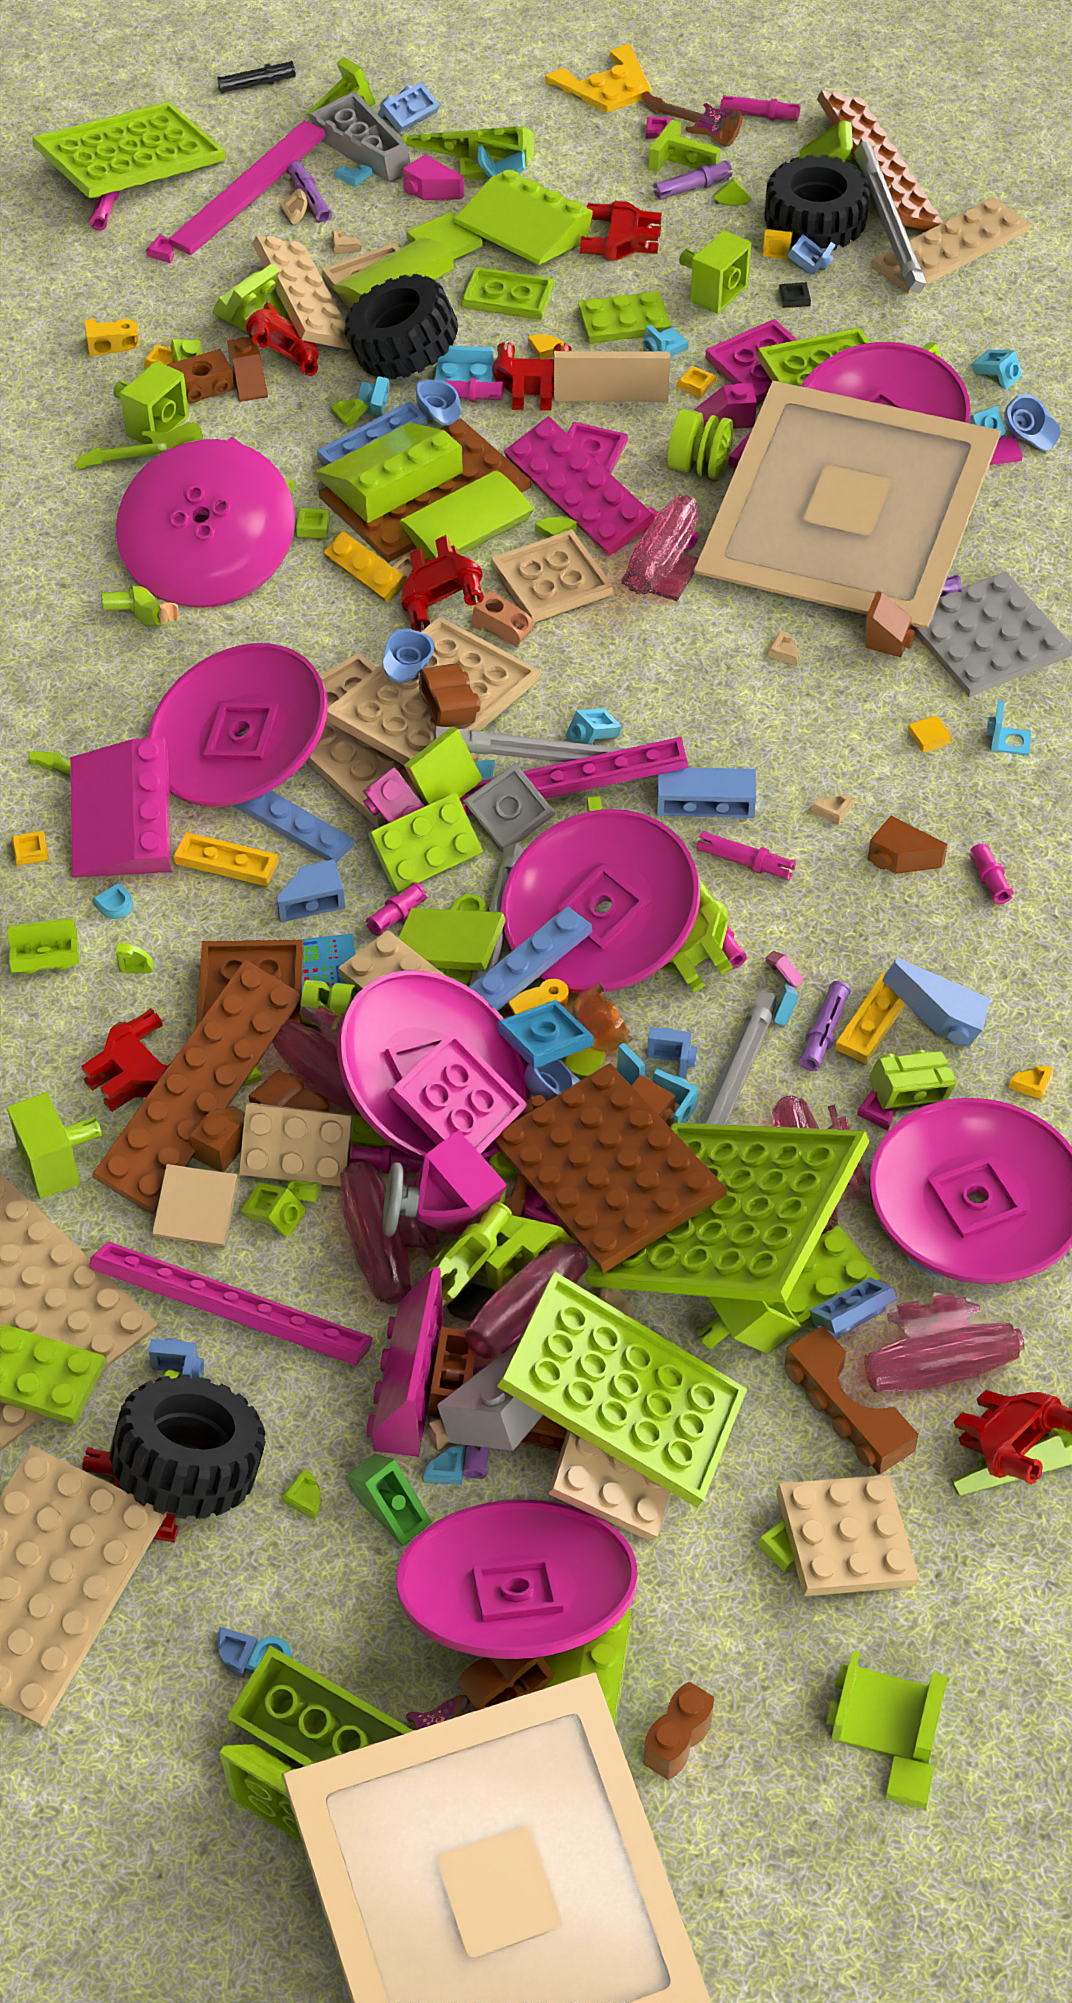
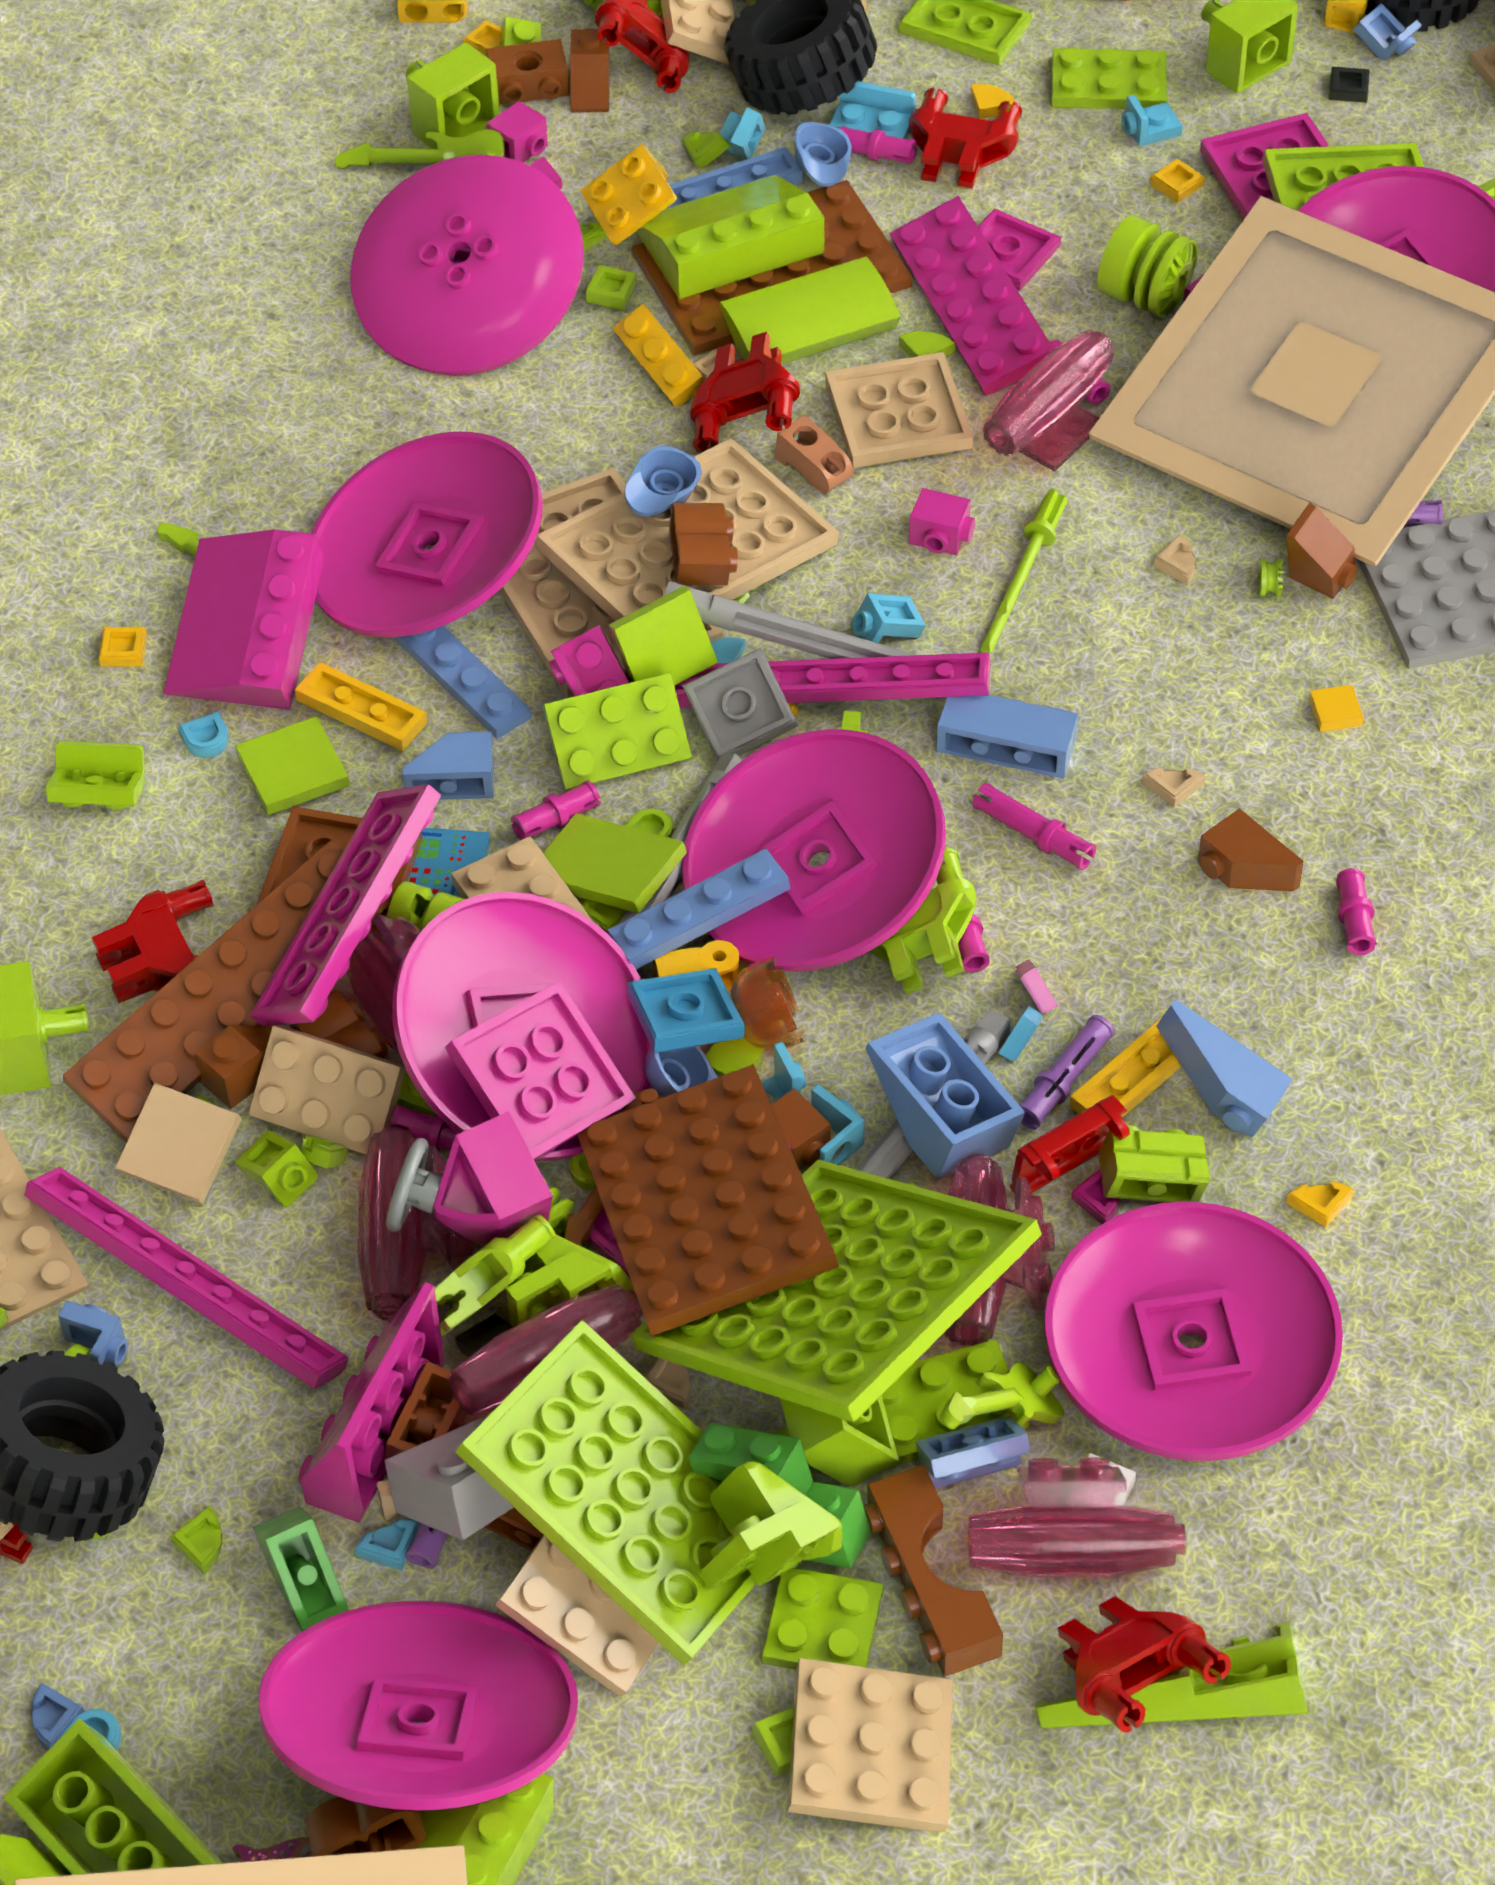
camera: 15 degrees right, 0 degrees up
(133, 959) = (203, 813): lime tile -> none
(142, 603) = (359, 354): lime arm -> none
(189, 911) = (292, 765): none -> lime tile
(212, 419) = (522, 131): none -> dark pink brick
(275, 1006) = (346, 906): none -> dark pink plate
(310, 453) = (629, 194): none -> yellow bracket
(610, 651) = (941, 522): none -> dark pink brick
(611, 376) = (1059, 156): tan tile -> none
(672, 1045) = (848, 1056): medium blue bracket -> none
(681, 646) = (1039, 532): none -> lime piece
(721, 1352) = (727, 1447): none -> bright green arch
(730, 1391) = (769, 1527): none -> lime piece
(731, 402) = (1207, 220): dark pink slope -> none
(750, 1058) = (943, 1094): none -> medium blue slope
(780, 1452) = (822, 1619): none -> lime plate
(850, 1076) = (1069, 1144): none -> red piece
(854, 649) = (1269, 578): none -> lime bush
(869, 1260) = (1018, 1390): none -> lime piece
(999, 734) = (1430, 726): medium azure bracket -> none

